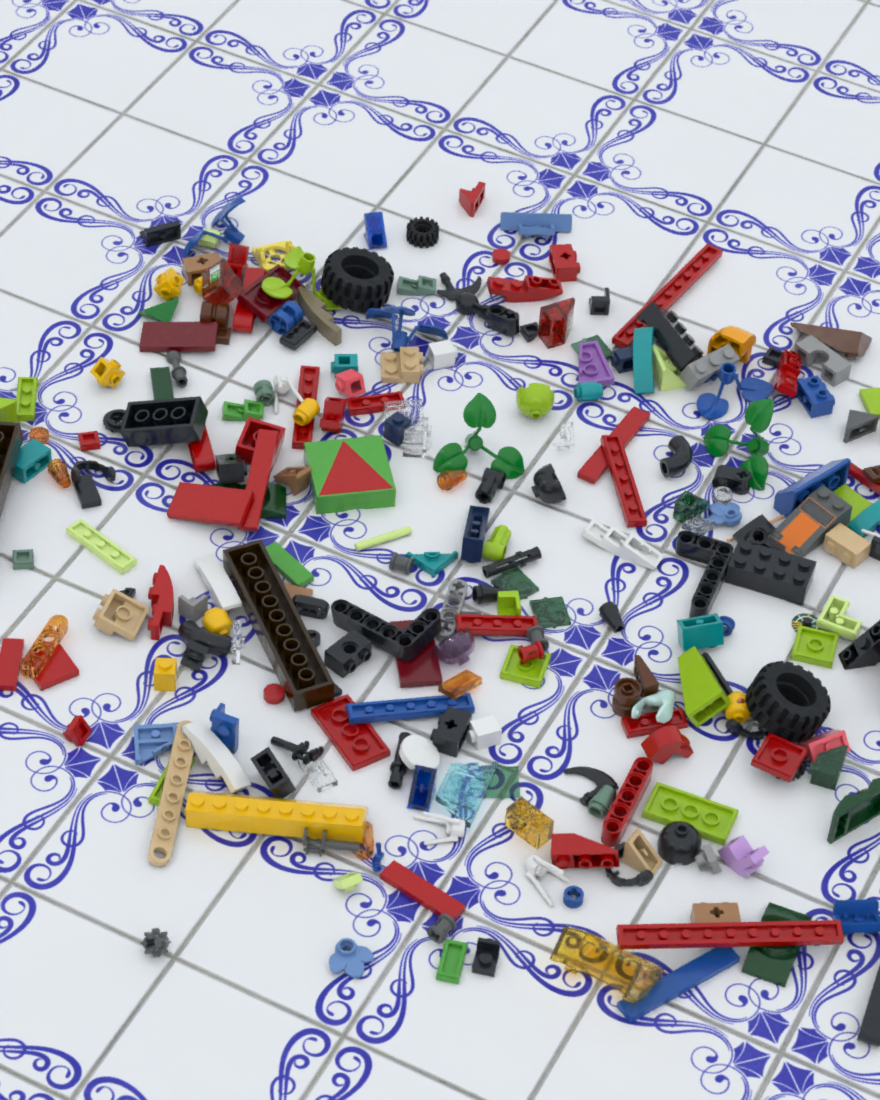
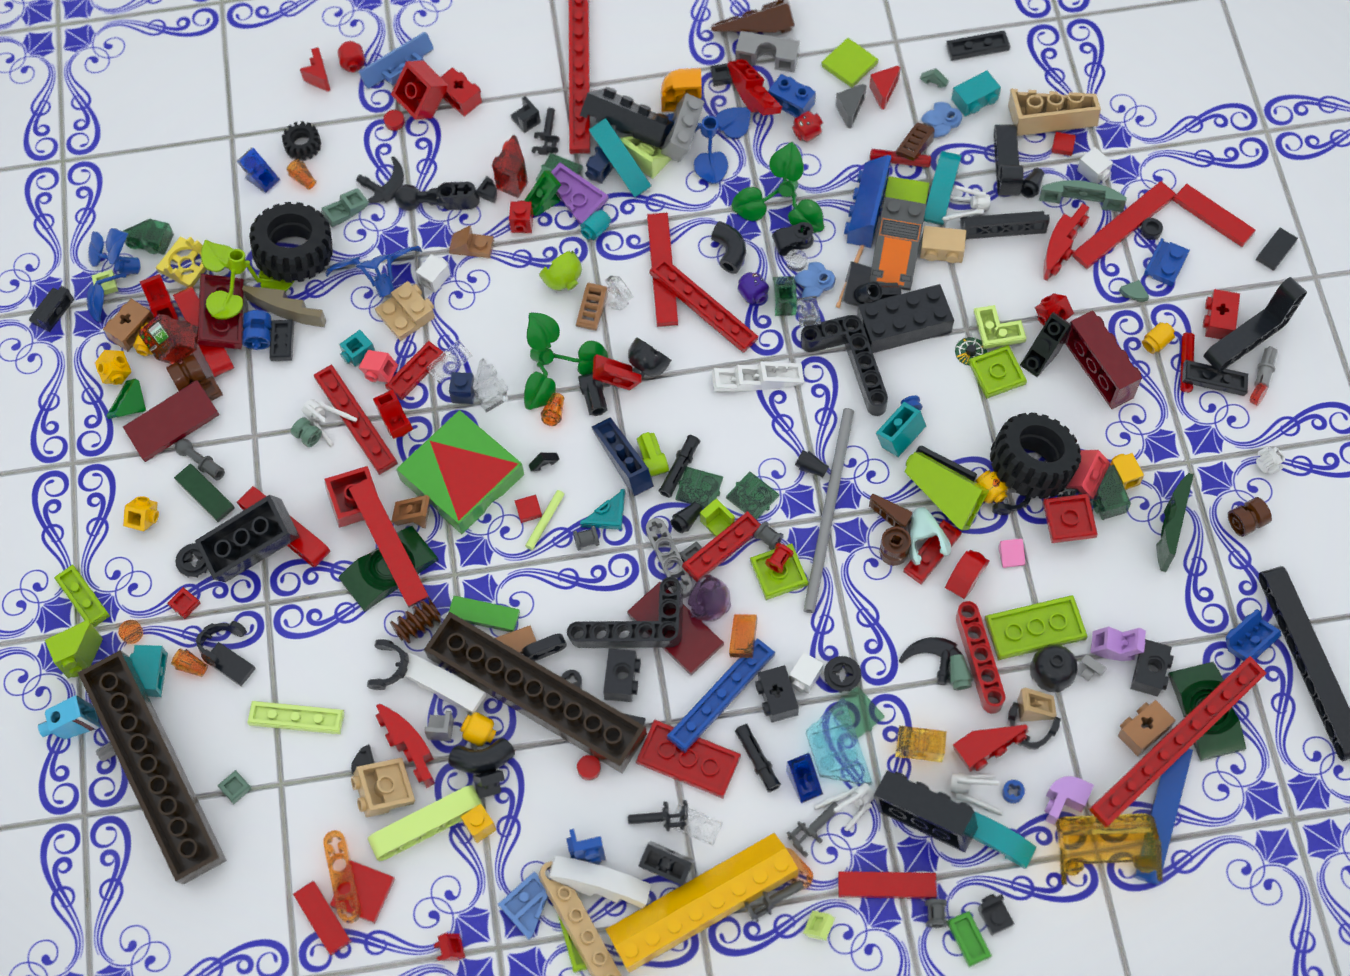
camera: 30 degrees left, 20 degrees up
(125, 652) = (423, 823): none -> yellowish green beam
(201, 541) = (380, 684): none -> black piece
(210, 504) = (364, 600): red tile -> none
(230, 468) = (350, 545): black brick -> none
(233, 538) = (416, 621): none -> reddish brown piece
(238, 641) = (512, 735): clear plate -> none
(240, 412) = (301, 466): bright green slope -> none
(264, 228) = (150, 236): none -> clear green slope
(306, 412) = (365, 429): yellow brick -> none
(376, 861) = (821, 880): clear blue piece -> none
(377, 524) = (528, 508): none -> red tile
(398, 826) = (811, 831): none -> dark grey piece
(403, 248) = (300, 173): none -> clear orange cone
(415, 502) = (543, 459): none -> black tile
(418, 751) = (771, 741): white tile -> none
(486, 355) = (471, 244): none -> medium nougat slope
(491, 855) = (926, 810): none -> black brick
(505, 202) = (351, 56): none -> red head
(512, 744) = (835, 666): none -> black gear
(515, 480) = (615, 373): none -> red panel
(529, 290) = (448, 146): red slope -> none
(531, 910) = (1004, 840): none -> teal slope
(533, 243) = (419, 89): none -> red brick
(537, 356) = (521, 217): none -> red brick
(547, 428) = (593, 293): none -> medium nougat slope
(567, 353) = (544, 193): none -> green slope
(598, 652) = (828, 511): none -> light grey piece
(604, 323) = (546, 135): none -> black piece
(607, 919) = (1069, 792): none -> lavender brick
(670, 489) = (753, 288): none -> dark purple head
(716, 757) = (1012, 553): none -> bright pink slope
(756, 887) = (1146, 680): none -> black brick
(809, 419) = (807, 126): none -> red head
(856, 761) = (1128, 470): none -> yellow brick

